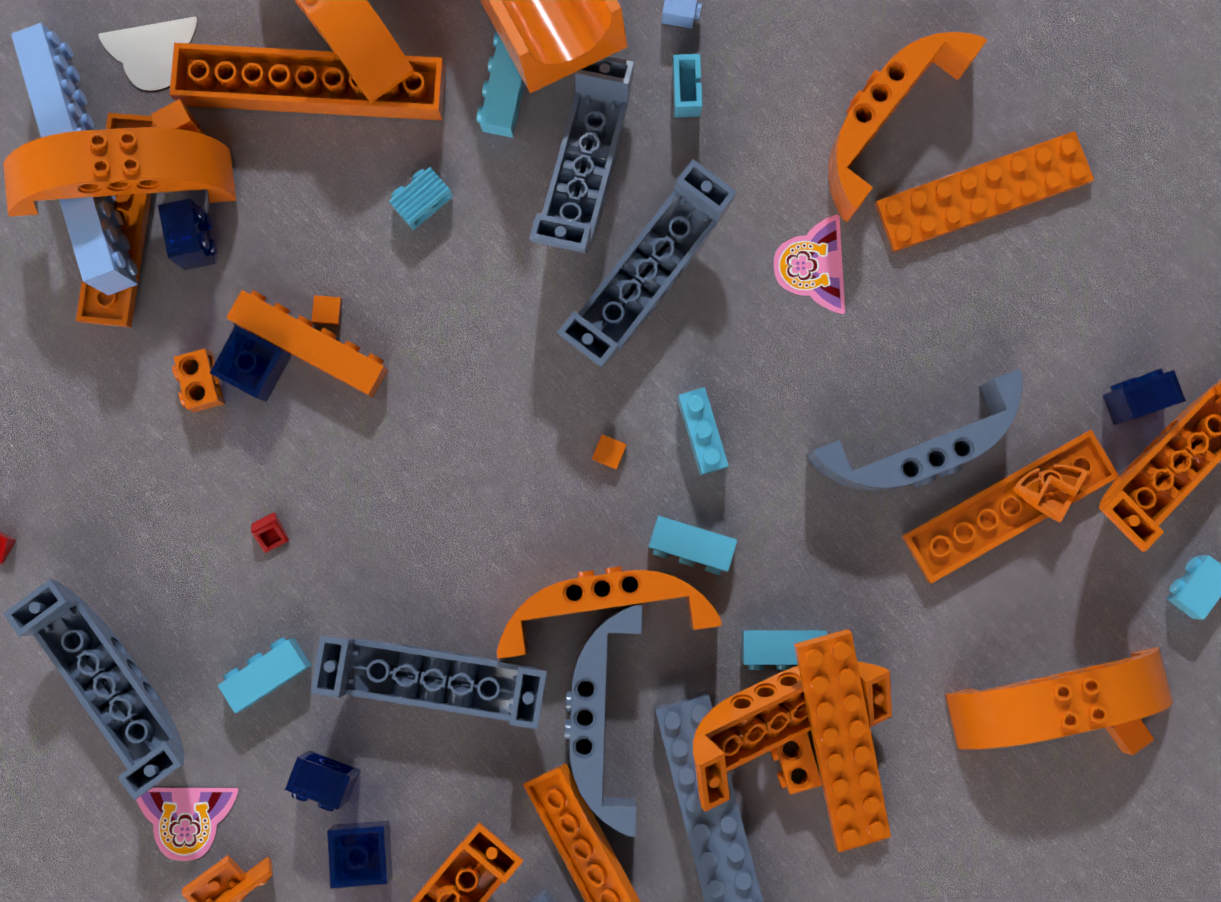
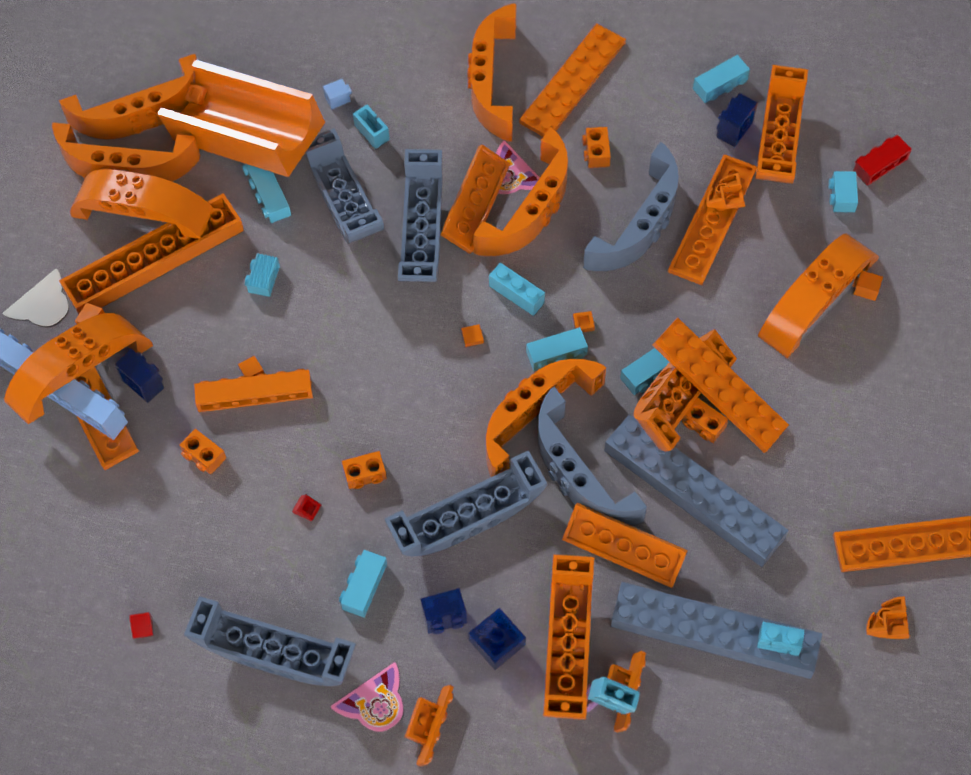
camera: 35 degrees left, 20 degrees down
(250, 363) = (228, 419): clear blue brick -> none
(364, 531) = (363, 465): none -> orange brick
(741, 275) = (475, 198): none -> orange plate
(750, 530) = (584, 321): none -> orange plate
(852, 322) = (536, 208): none -> orange slope
(946, 311) = (599, 146): none -> orange brick
(1170, 323) = (721, 79): none -> medium azure brick

